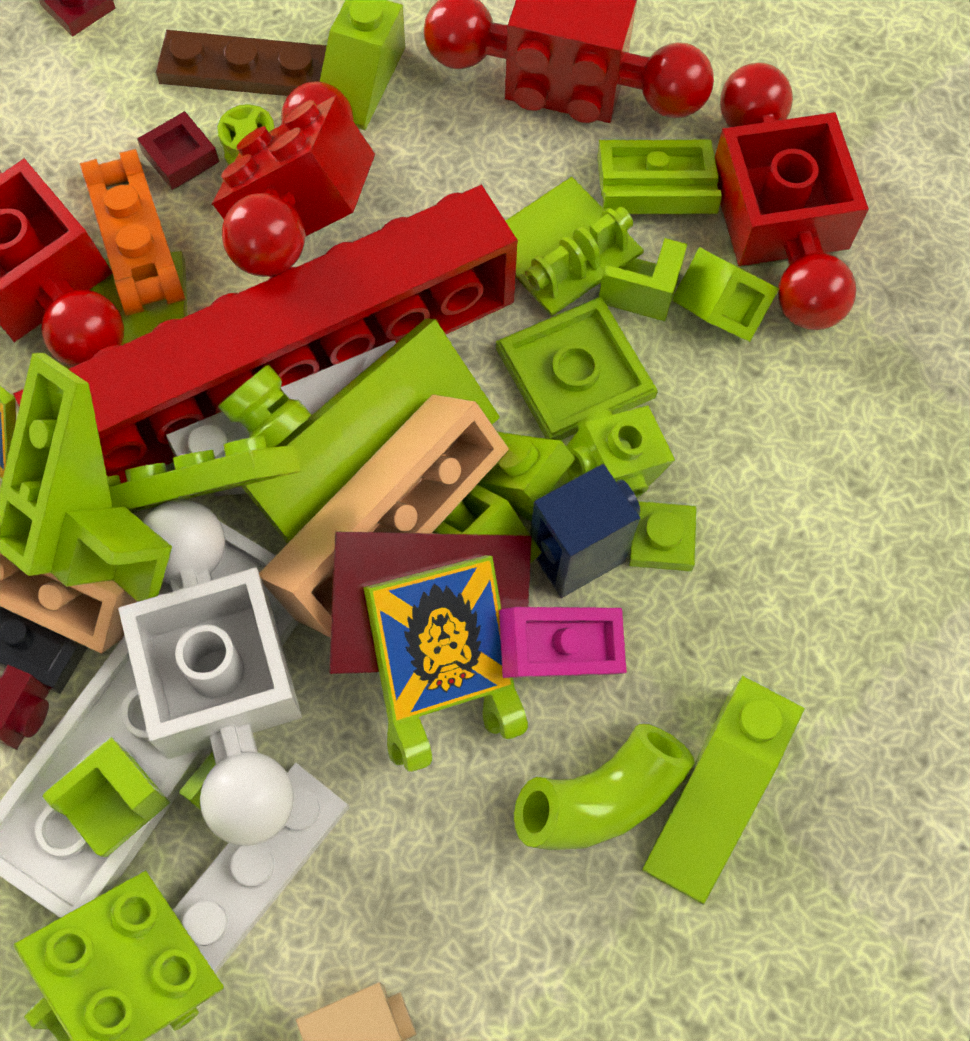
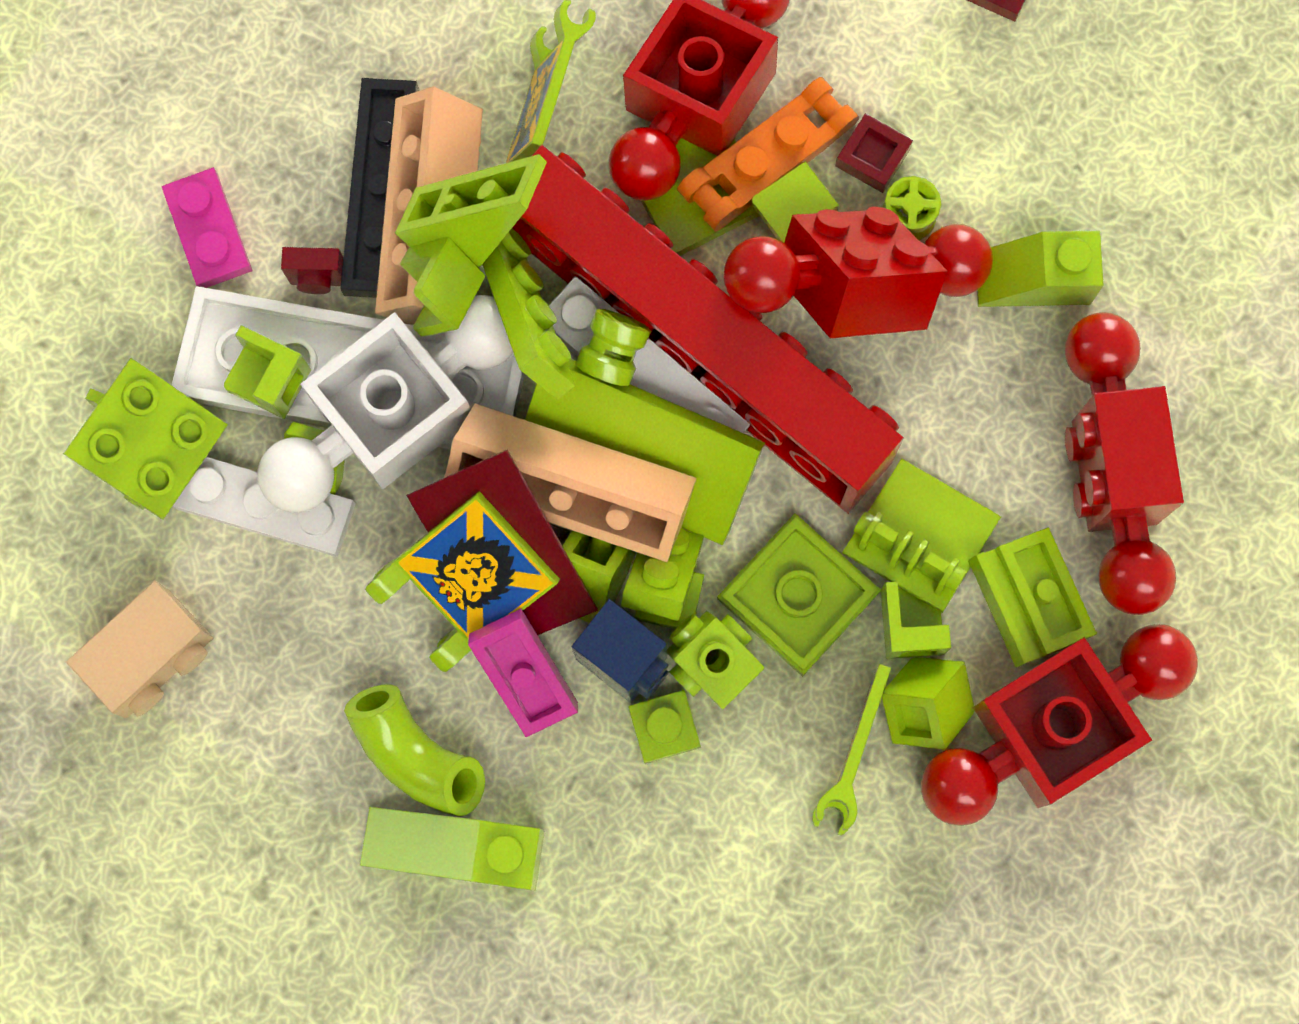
camera: 75 degrees right, 10 degrees up
(193, 222) = (791, 195): none -> lime panel
(237, 63) = (998, 163): reddish brown plate -> none
(759, 354) = (842, 794): none -> lime flag

